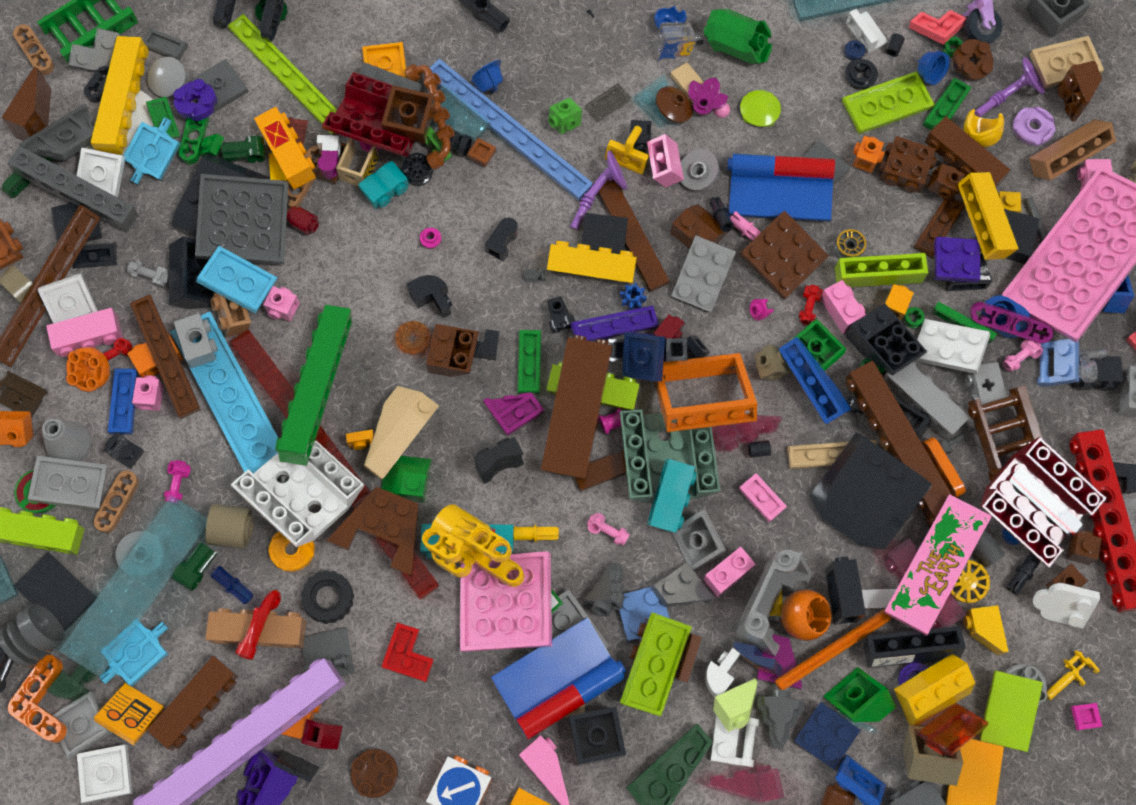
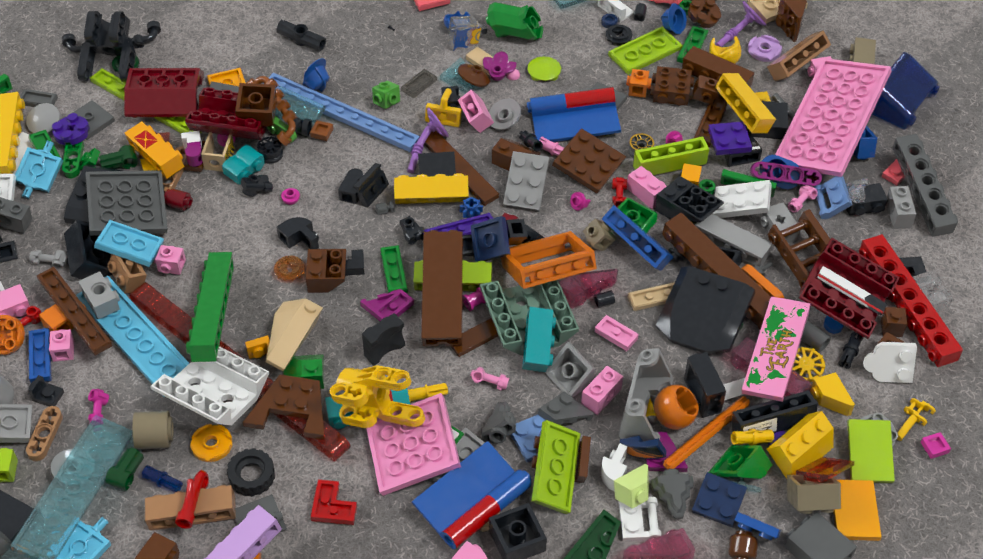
camera: 10 degrees left, 20 degrees down
(303, 71) = (161, 92): none -> dark red slope
(391, 216) = (256, 183): none -> black plate
(524, 243) = (371, 185): none -> black plate
(882, 669) = (752, 437): none -> yellow pin
(891, 243) = (673, 136): none -> dark pink plate

